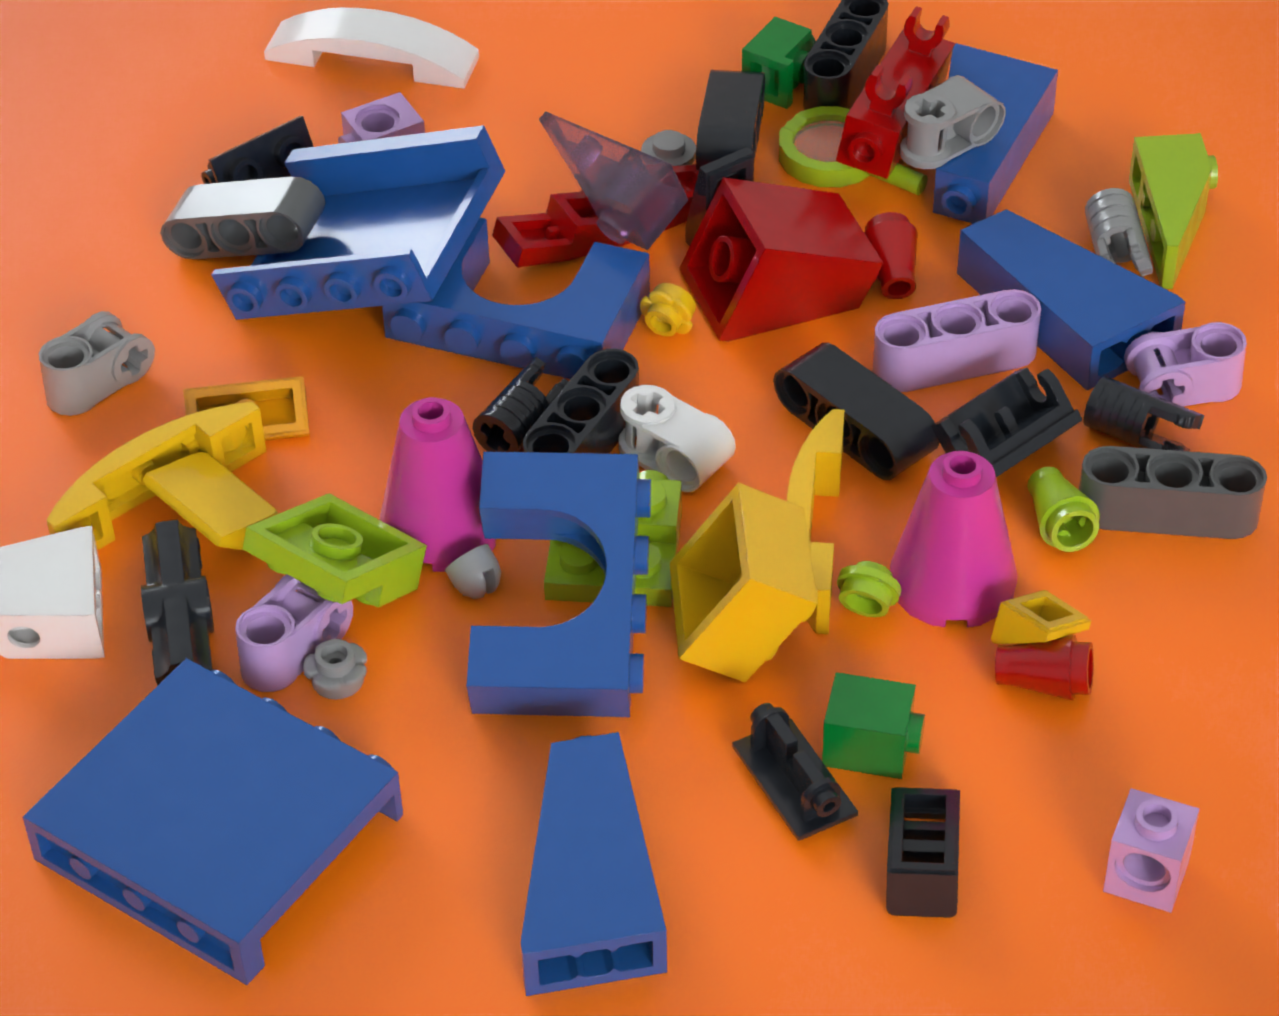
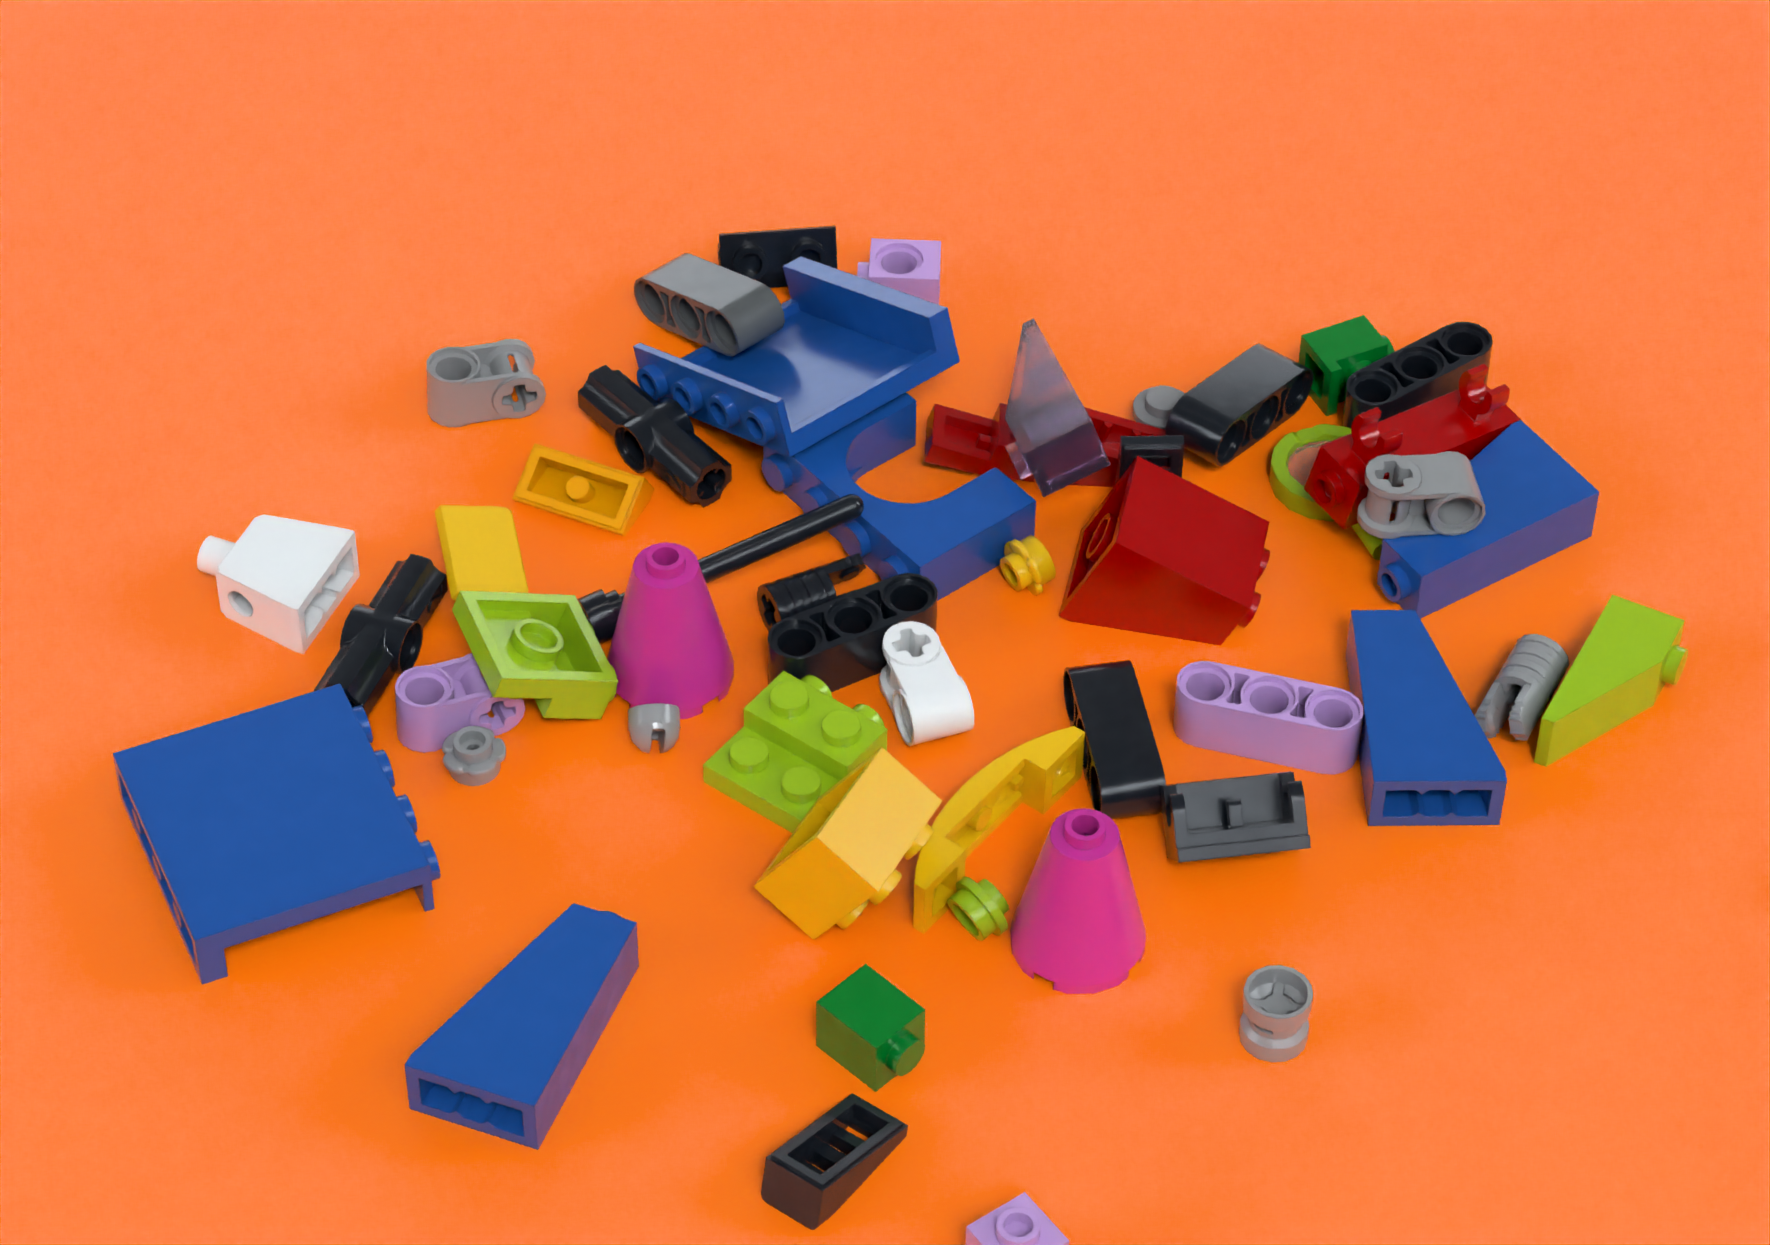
camera: 30 degrees right, 0 degrees up
(115, 483) = (407, 505): yellow slope -> none
(277, 341) = (654, 436): none -> black piece
(366, 489) = (604, 608): none -> black piece
(375, 34) = (982, 174): white slope -> none
(589, 660) = (682, 849): blue arch -> none
(792, 774) = (775, 1036): black hinge -> none
(896, 245) = (1286, 603): red cone -> none
(1036, 619) = (1098, 1008): yellow slope -> none
(1051, 667) = (1083, 1059): red cone -> none
(1063, 512) = (1222, 926): lime cone -> none
(1134, 414) = (1375, 873): black hinge -> none
(1165, 558) = (1275, 1013): none -> light grey wheel
(1174, 491) = (1341, 956): dark grey beam -> none
(1193, 364) = (1473, 848): lavender piece -> none

